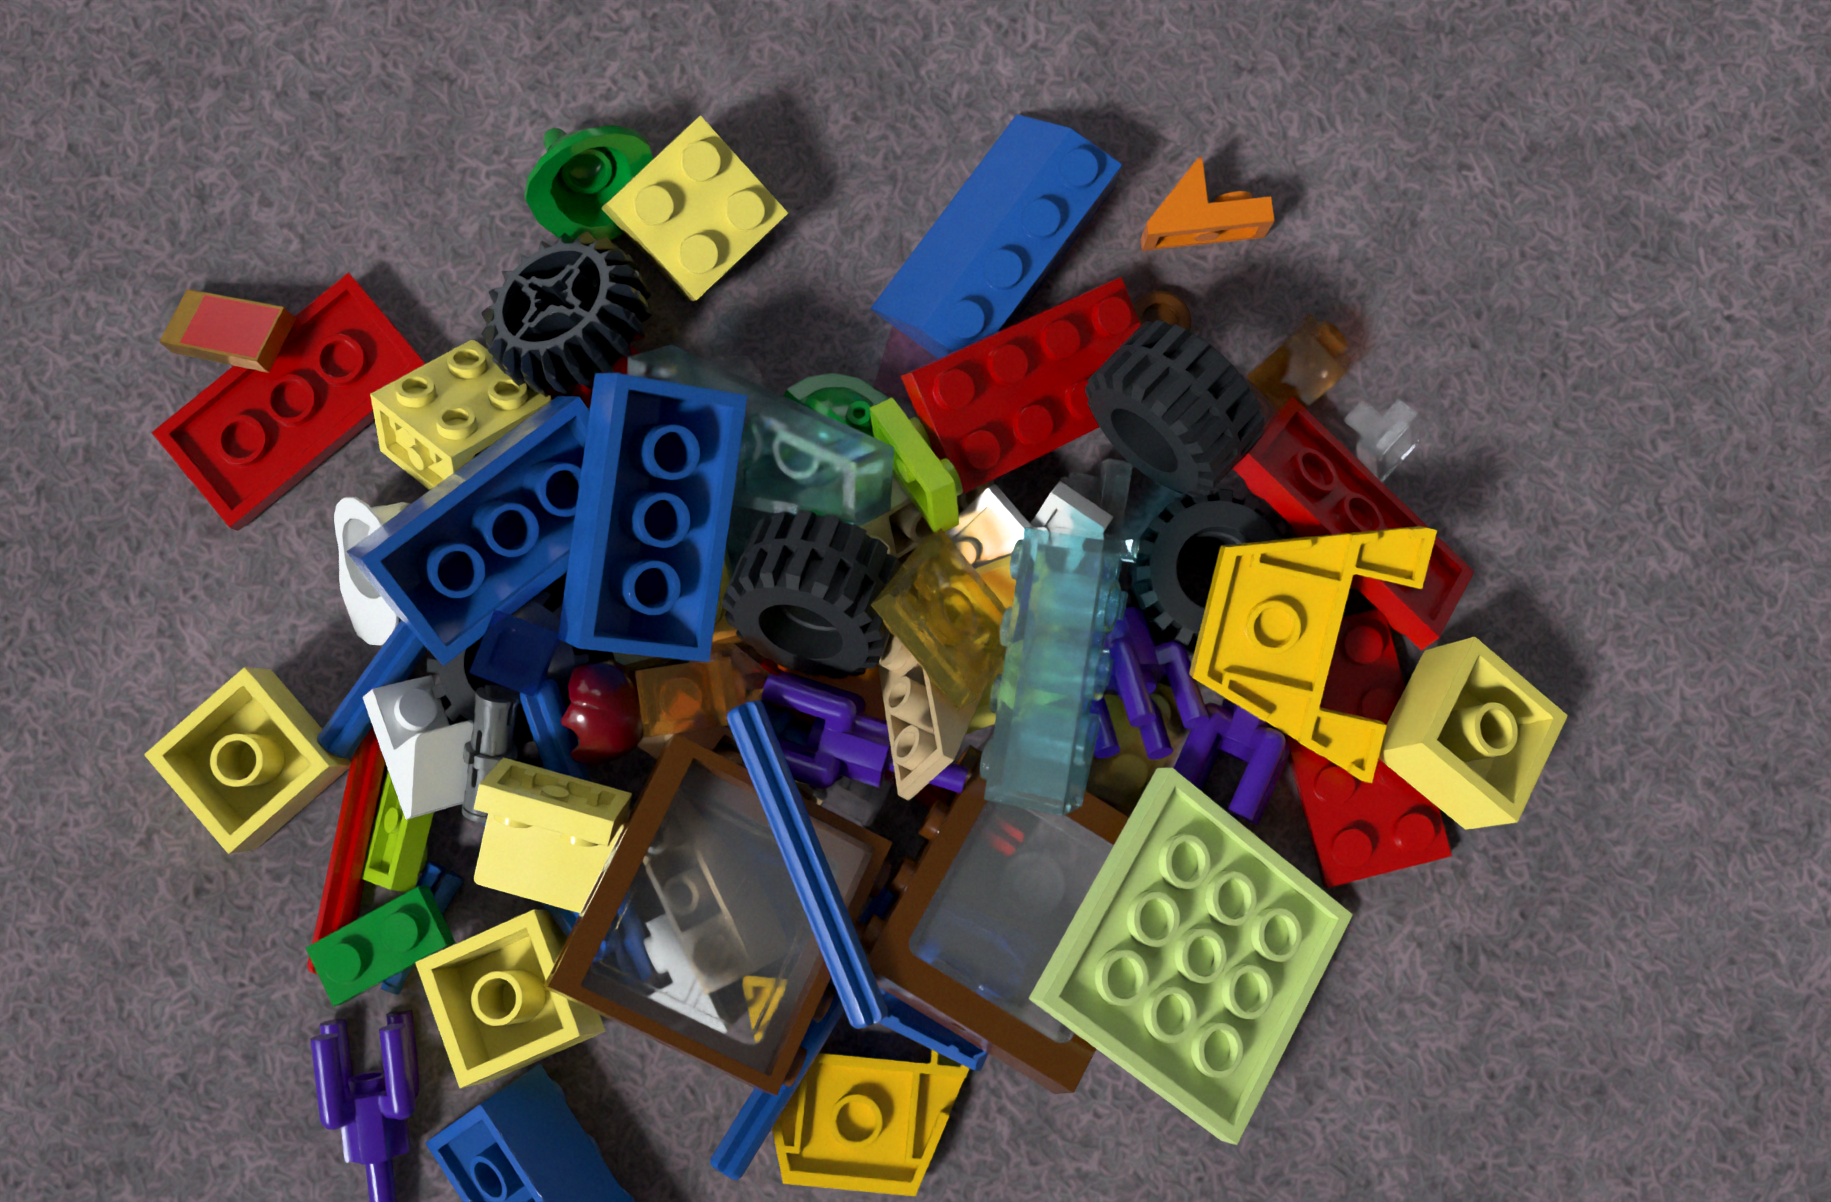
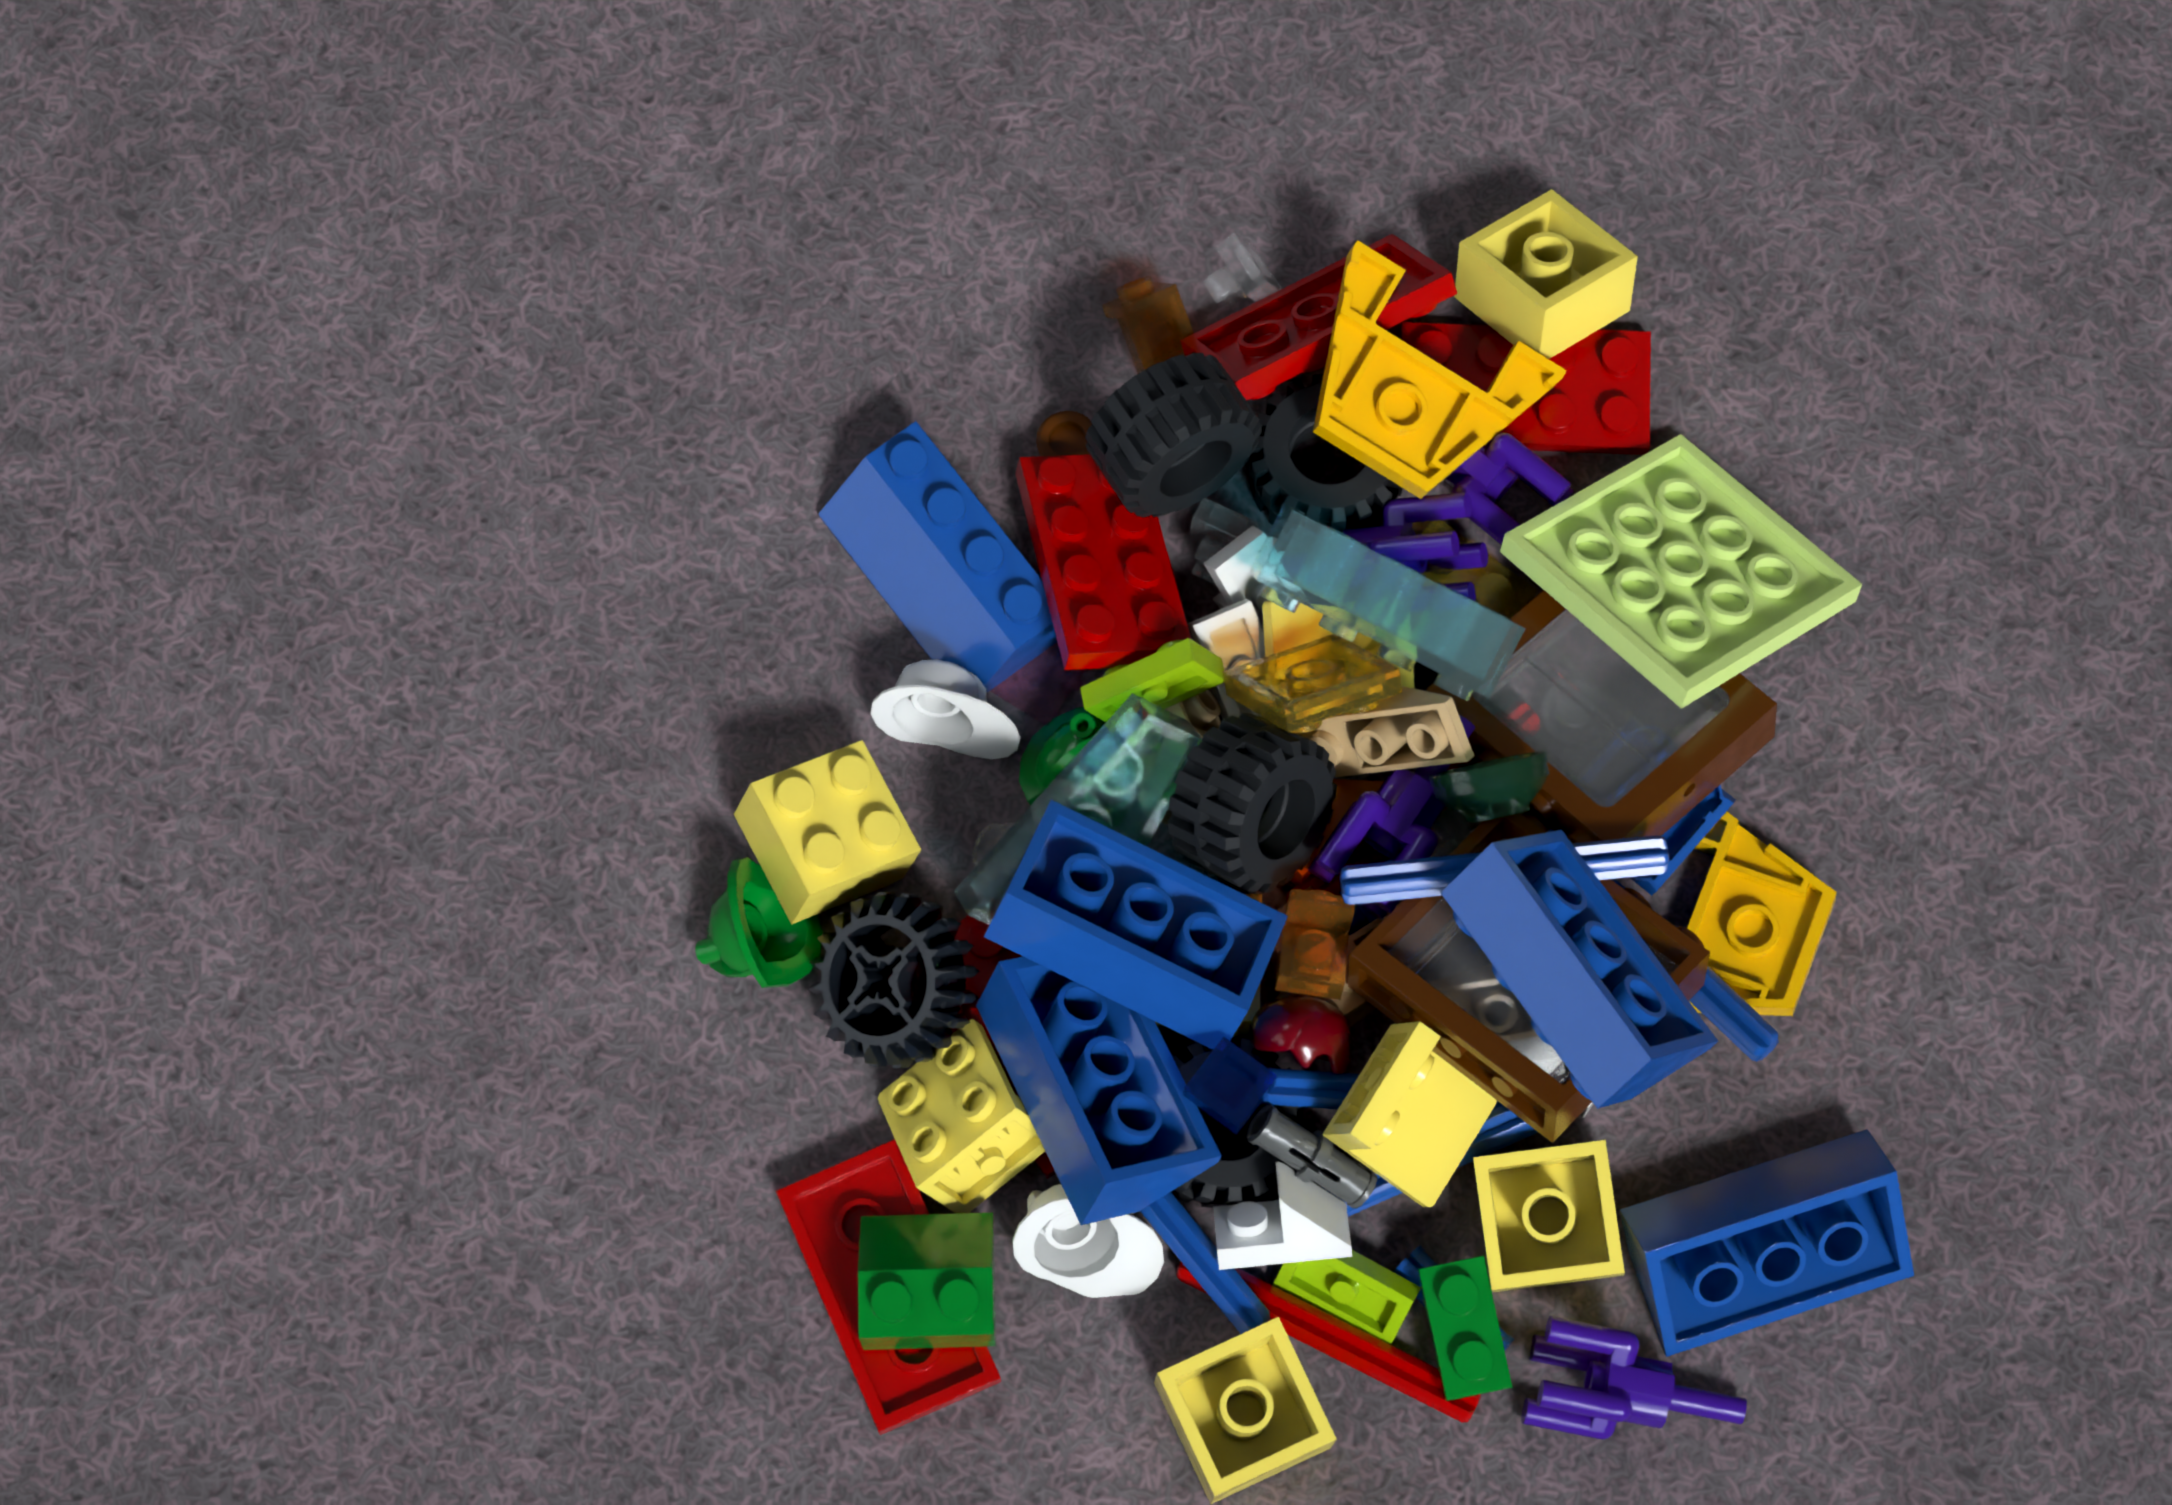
camera: 75 degrees left, 10 degrees down
(228, 330) = (797, 1326): tile -> none
(285, 429) = (926, 1281): none -> green slope
(700, 971) = (1577, 966): none -> blue slope
(857, 280) = (945, 708): none -> white piece
(893, 831) = (1492, 786): none -> clear green piece
(1190, 220) = (976, 379): orange slope -> none

